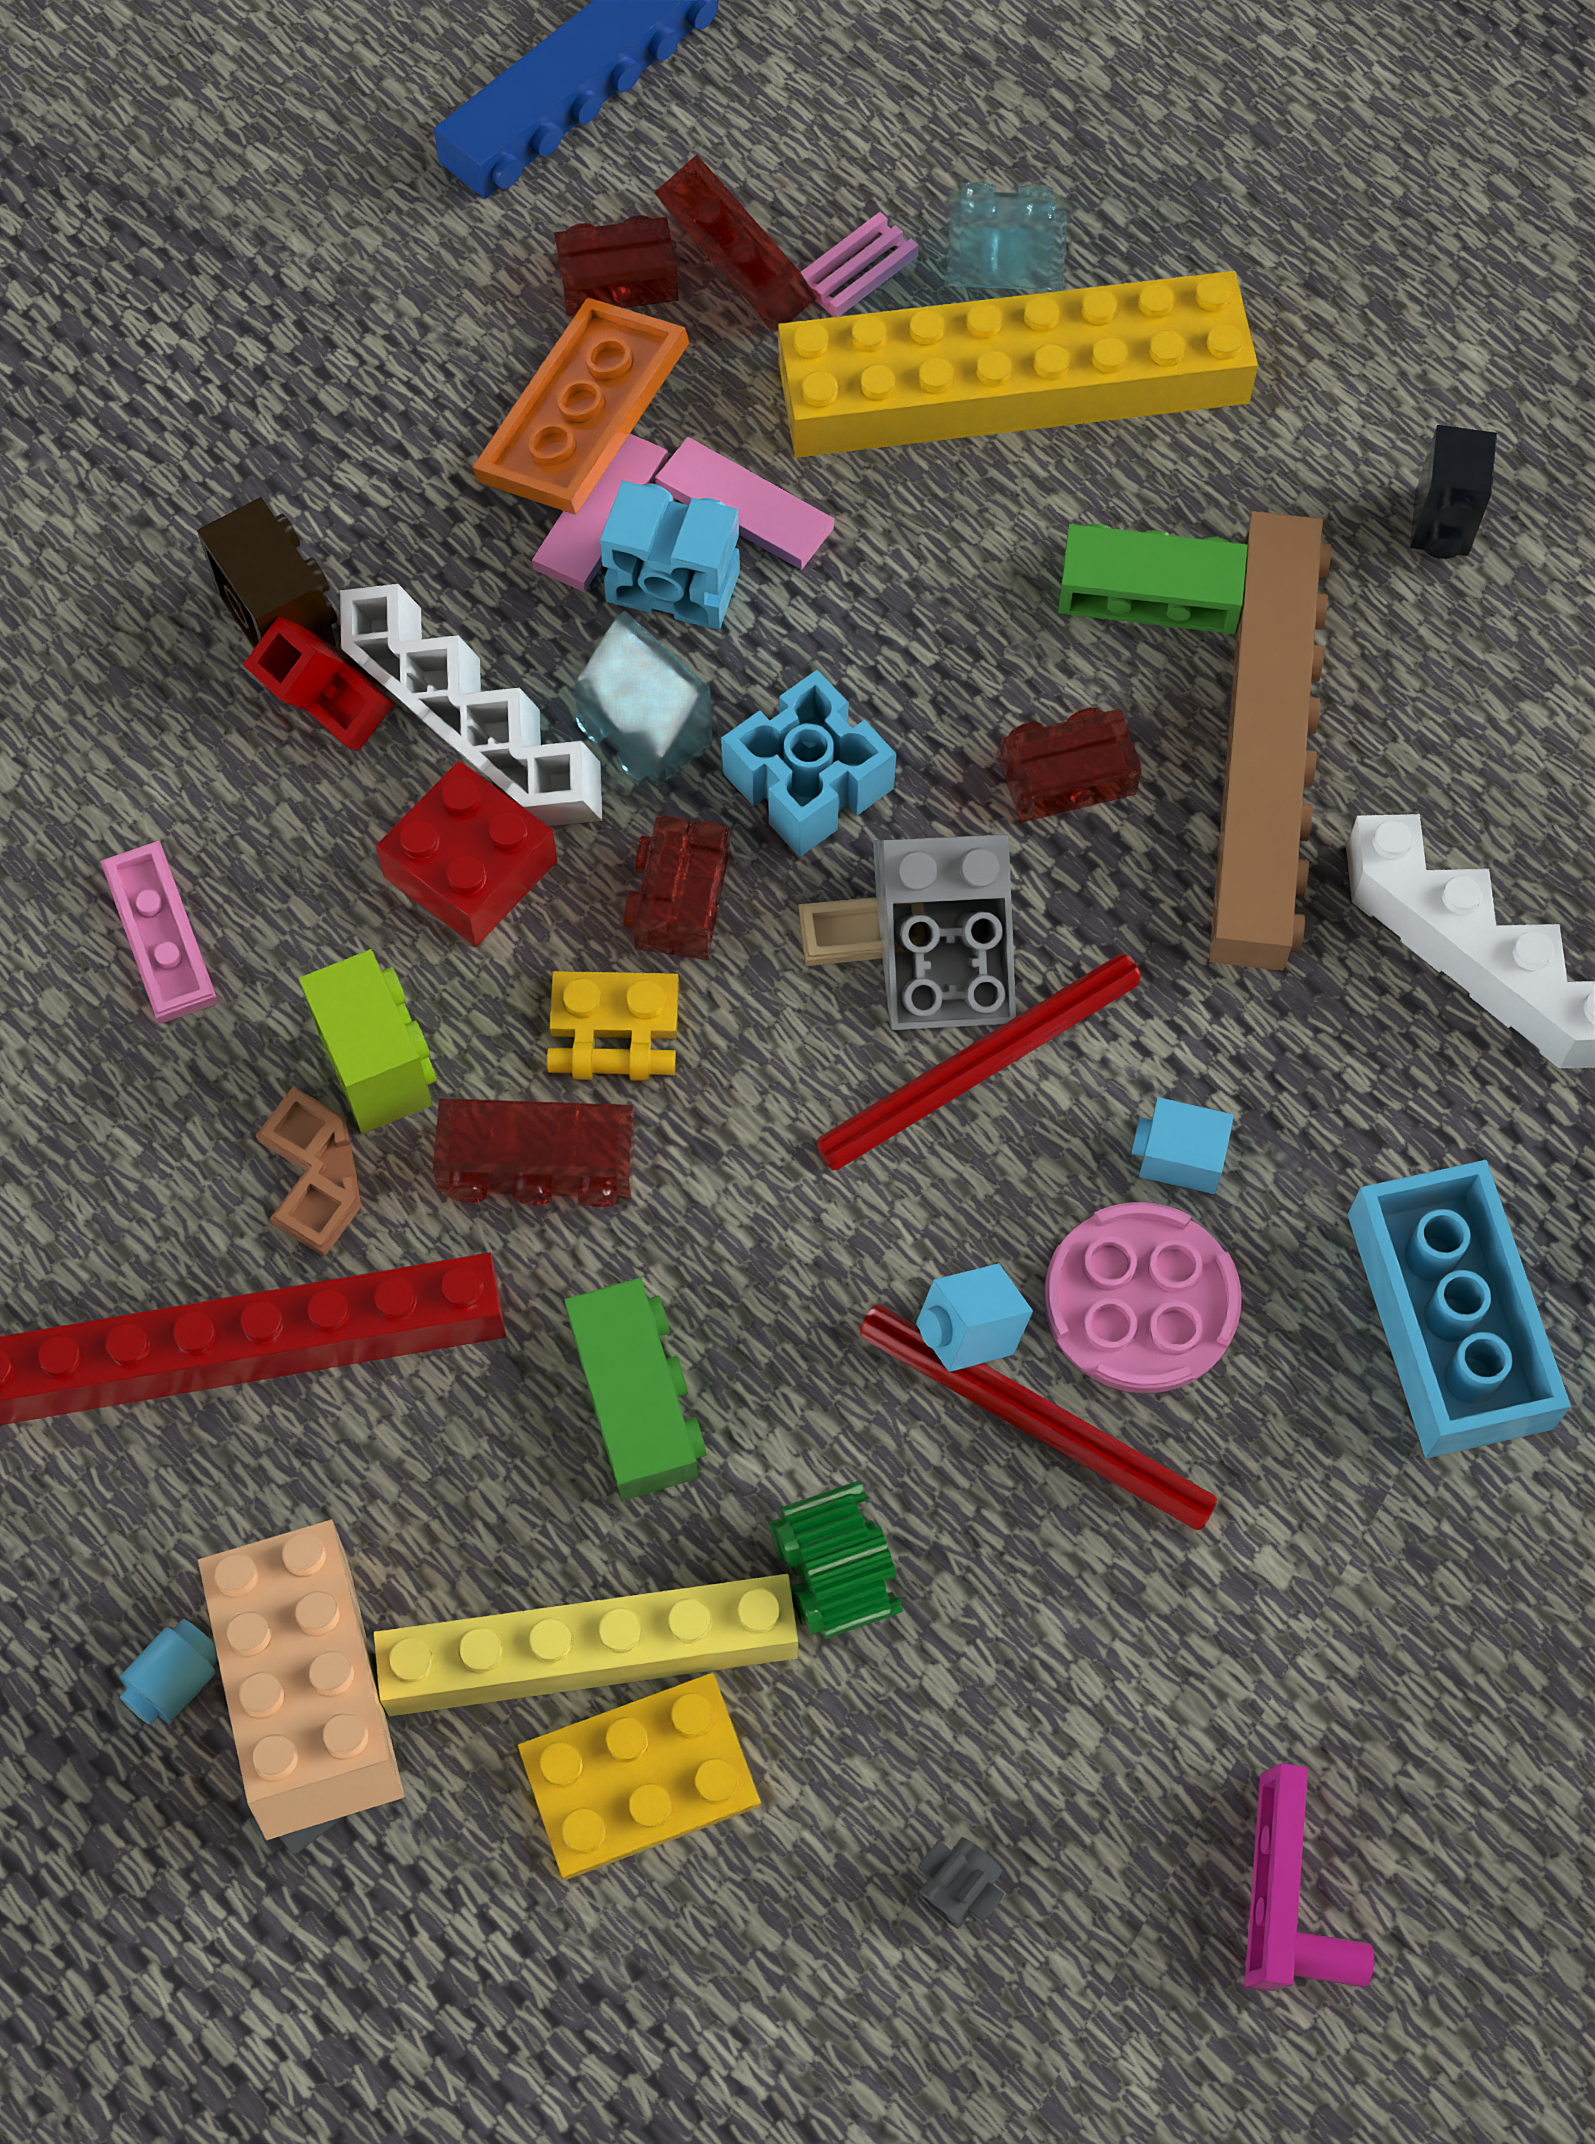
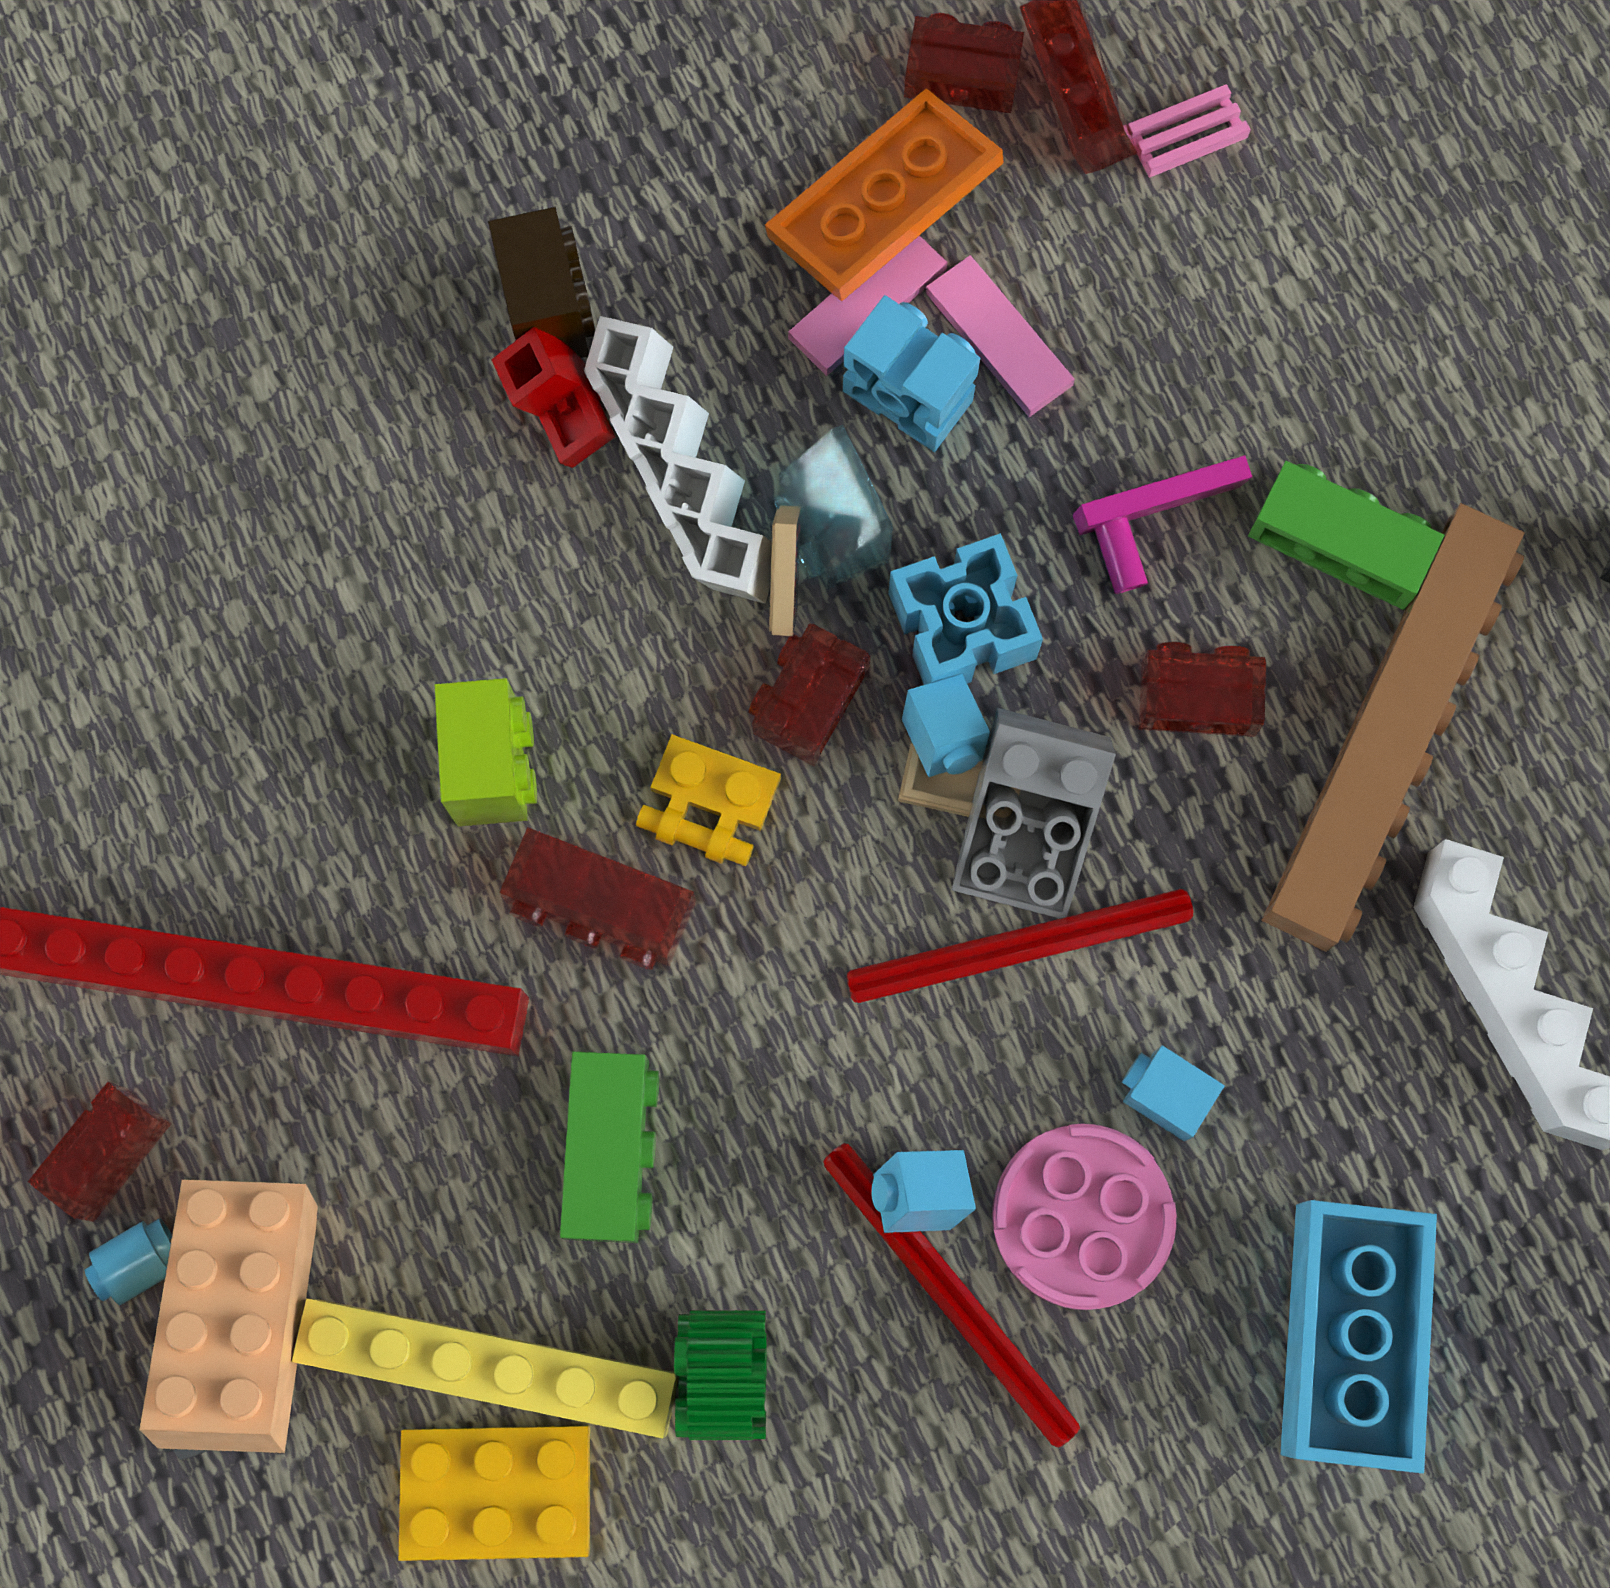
camera: 20 degrees right, 10 degrees up
(96, 1571) = (99, 1153): none -> clear red brick
(159, 932) = (345, 579): bright pink tile -> none
(328, 1190) = (412, 869): nougat tile -> none
(467, 853) = (633, 599): red brick -> none
(613, 774) = (784, 570): none -> tan tile
(828, 871) = (945, 726): none -> medium azure brick
(919, 627) = (1111, 514): none -> dark pink piece
(1005, 238) = (1331, 154): clear light blue brick -> none
(1016, 363) = (1300, 280): yellow brick -> none

